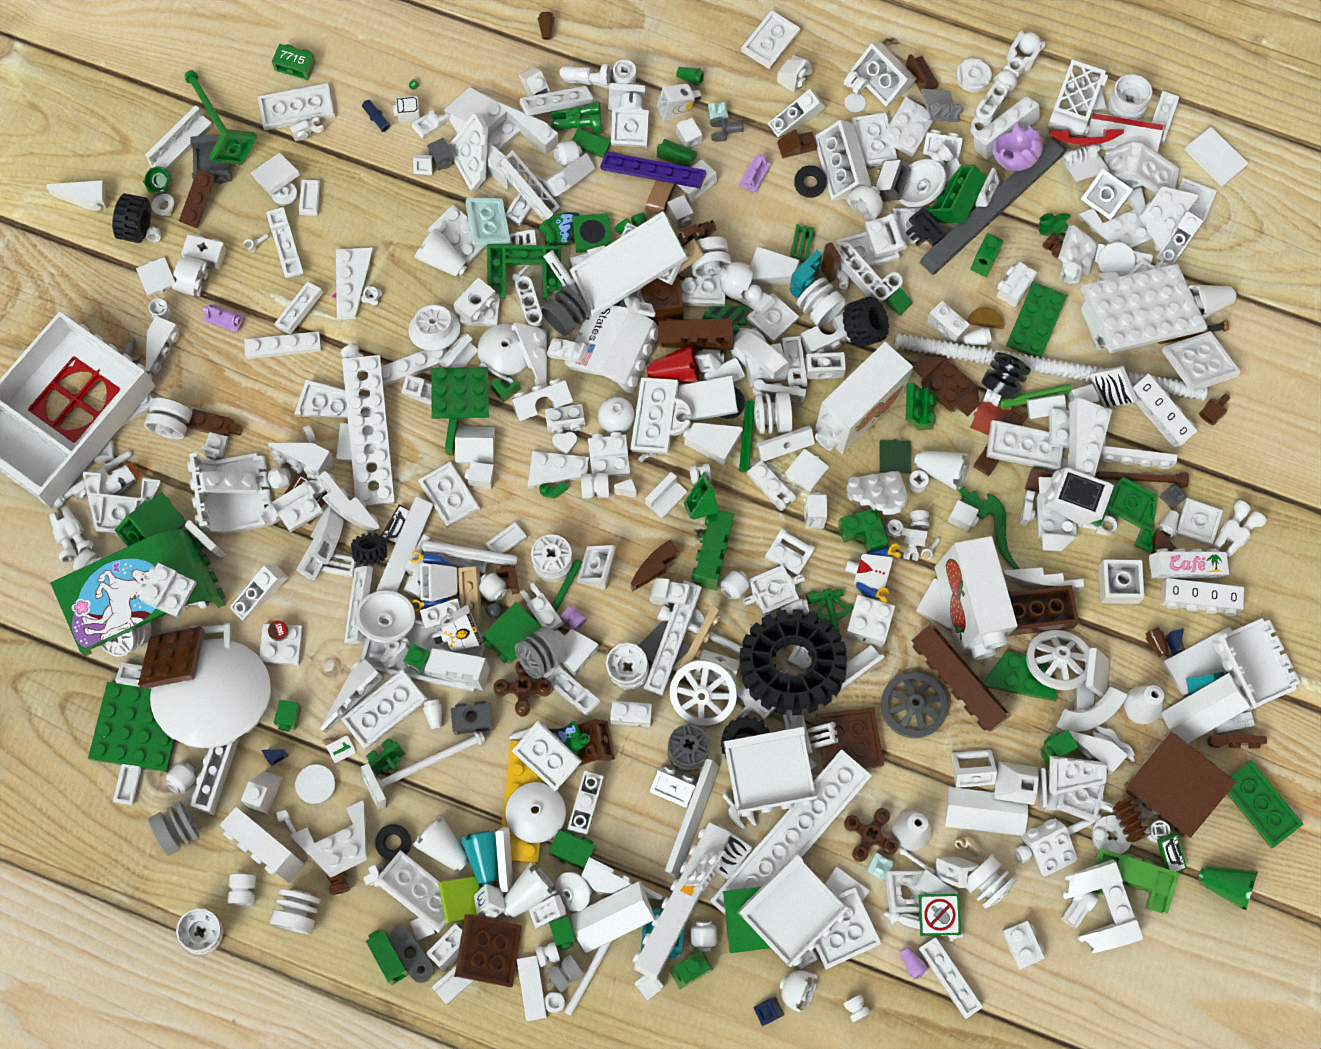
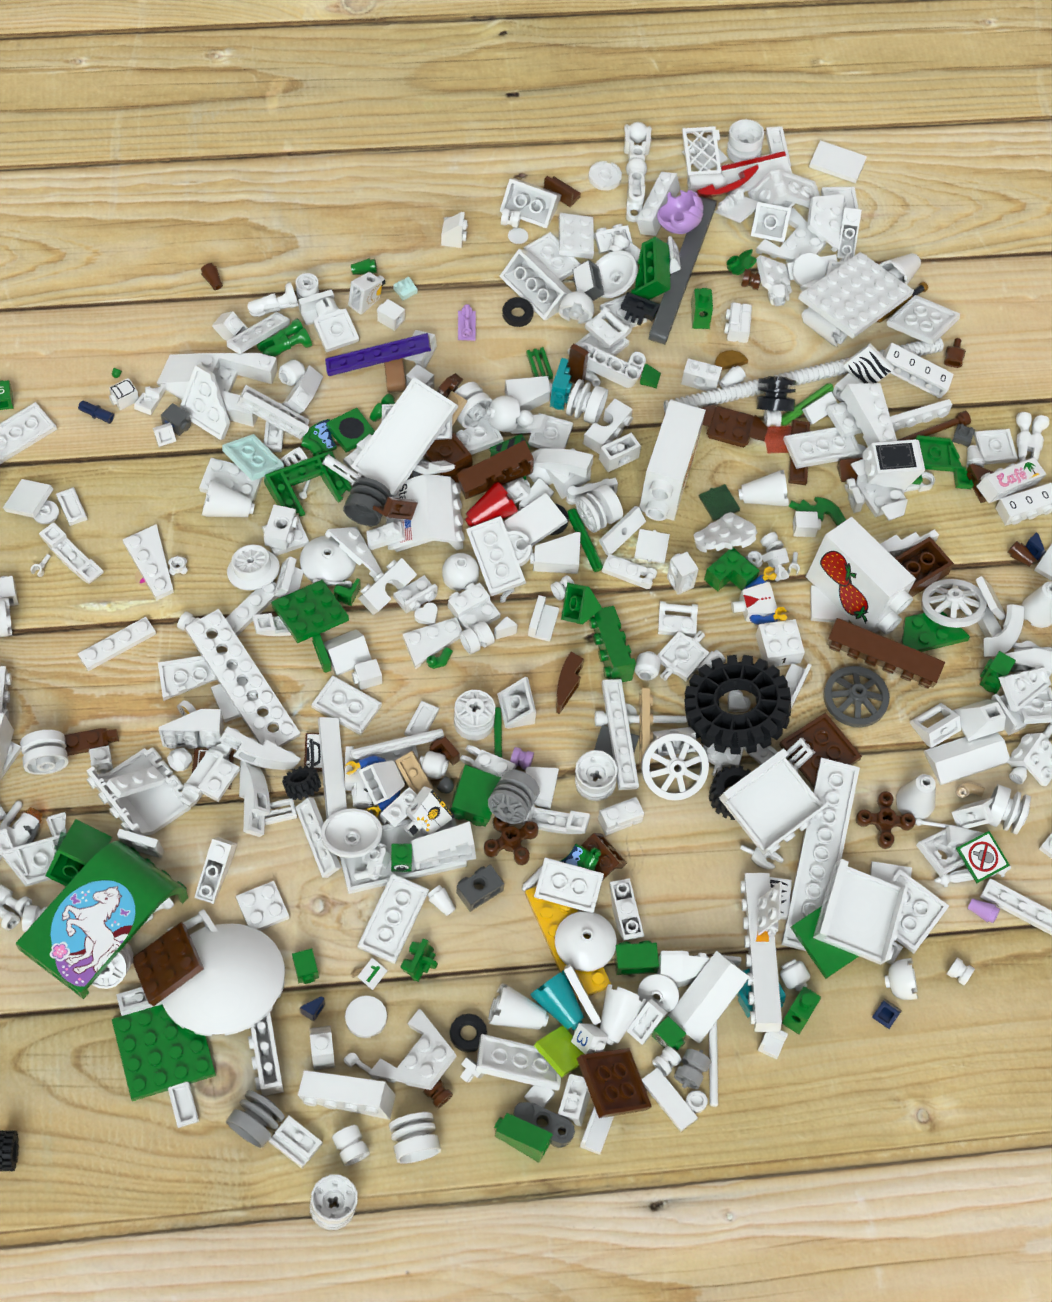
camera: 30 degrees left, 10 degrees down
(166, 590) = (137, 896): white plate -> none
(180, 778) = (234, 1072): white head -> none
(199, 863) = (295, 1142): none -> white plate
(222, 317) = (46, 643): lavender hinge -> none
(278, 630) = (255, 893): tile -> none
(298, 308) = (115, 604): white plate -> none
(303, 129) = (34, 449): white plate -> none
(358, 684) = (359, 902): white wedge -> none
(376, 786) = (426, 988): white tile -> none
(529, 295) = (324, 504): white beam -> none
(584, 331) = (397, 508): none -> reddish brown panel
(591, 143) = (308, 356): green tile -> none
(667, 592) = (591, 696): white brick -> none
(673, 785) = (693, 861): white bracket -> none
(676, 153) = (384, 335): green panel -> none
(682, 757) = (688, 830): dark grey wheel -> none
(692, 818) = (725, 880): white tile -> none
(731, 127) = (421, 298): dark grey piece -> none
(770, 39) = (417, 212): white plate -> none
(794, 355) = (597, 465): white plate -> none
(796, 144) = (488, 286): reddish brown slope -> none
(797, 113) = (475, 262): white slope -> none
(829, 596) = (732, 641): green piece -> none
(865, 321) = (634, 400): black tyre -> none
(879, 866) = (907, 843): light aqua tile -> none
(915, 484) = (749, 516): white wheel -> none
(920, 407) = (720, 450): green plate -> none
(941, 106) = (593, 208): light grey hinge -> none
(1036, 320) = (771, 345): green plate -> none
(1121, 581) = (965, 518): white brick -> none

